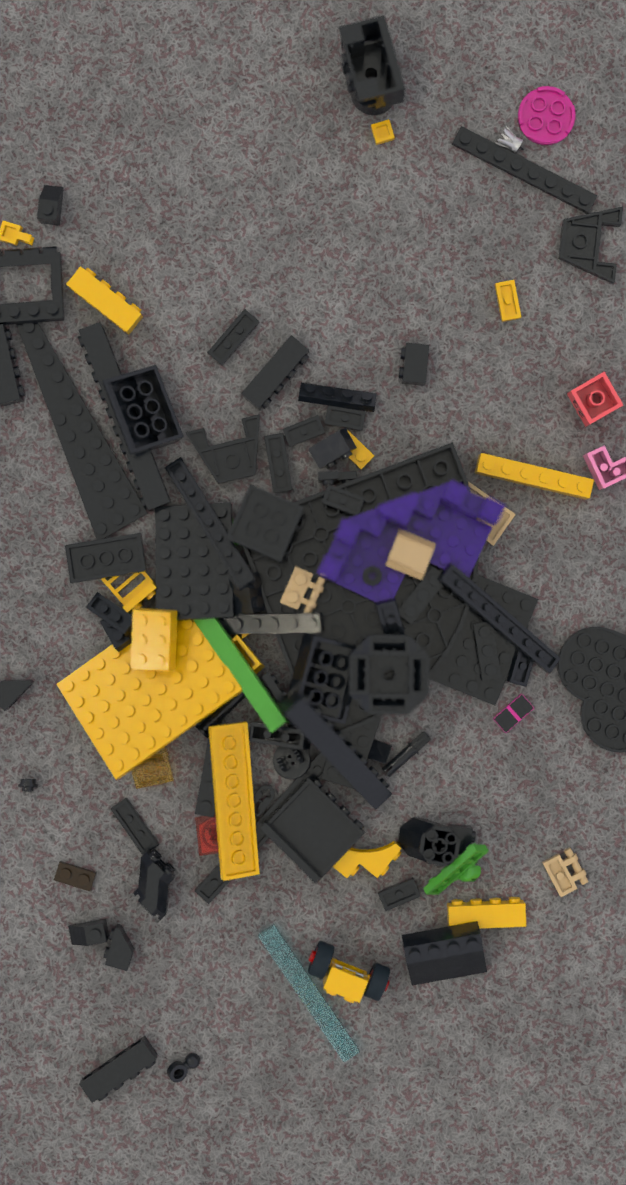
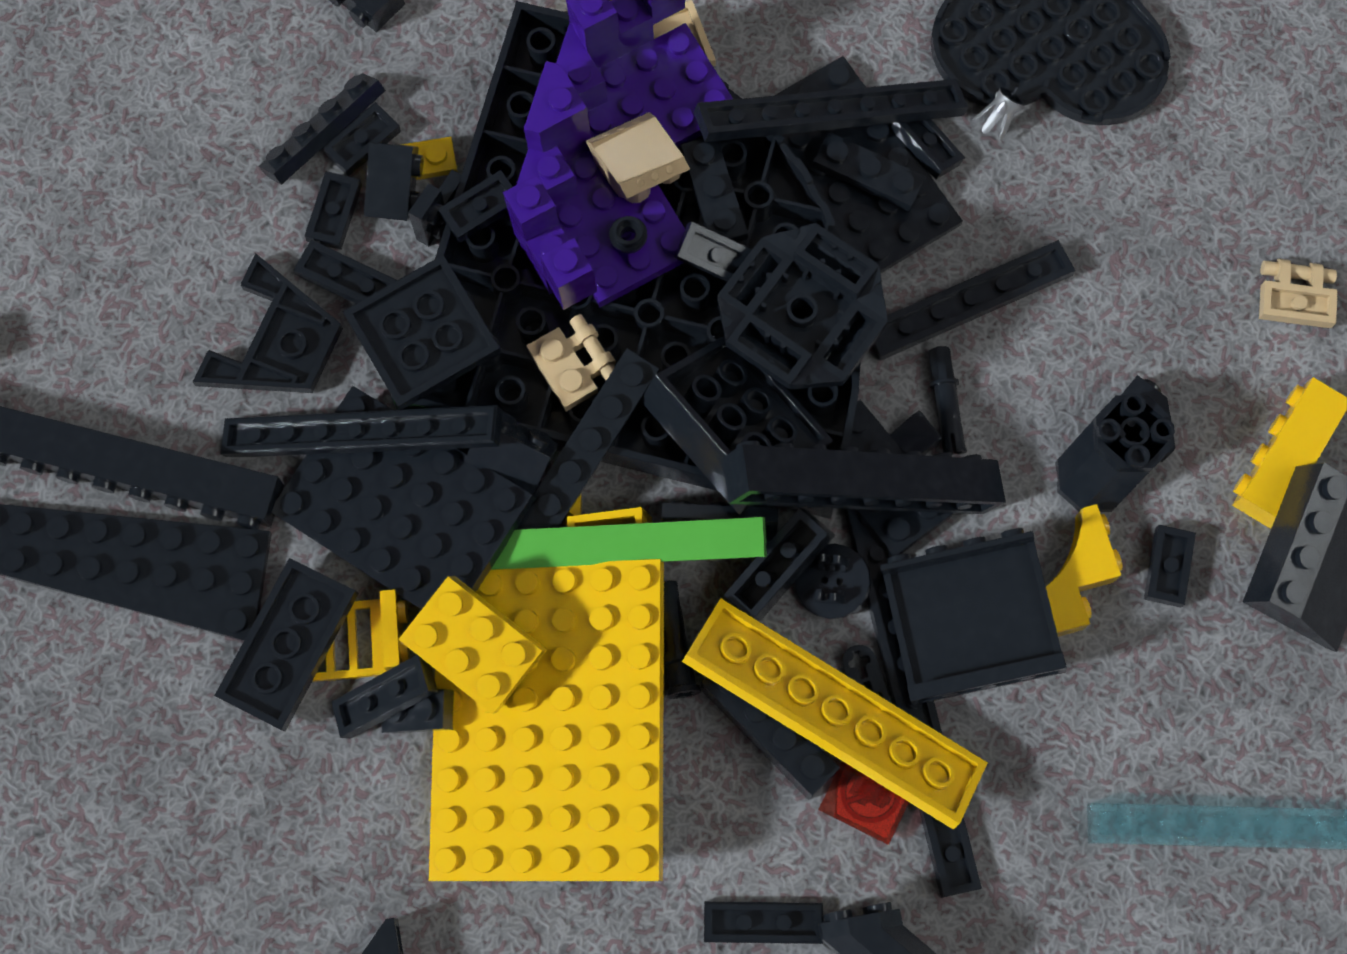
camera: 60 degrees left, 15 degrees down
(143, 410) = (104, 408): black slope -> none
(153, 770) = (690, 818): clear yellow plate -> none
(233, 337) = (111, 214): black plate -> none
(275, 372) = (214, 189): black brick -> none
(347, 979) = (1262, 744): brick -> none
(462, 735) = (973, 299): none -> black plate
(462, 869) = (1195, 436): bright green plate -> none
(513, 713) = (993, 205): black tile -> none
(562, 689) = (1006, 103): none -> flat silver piece

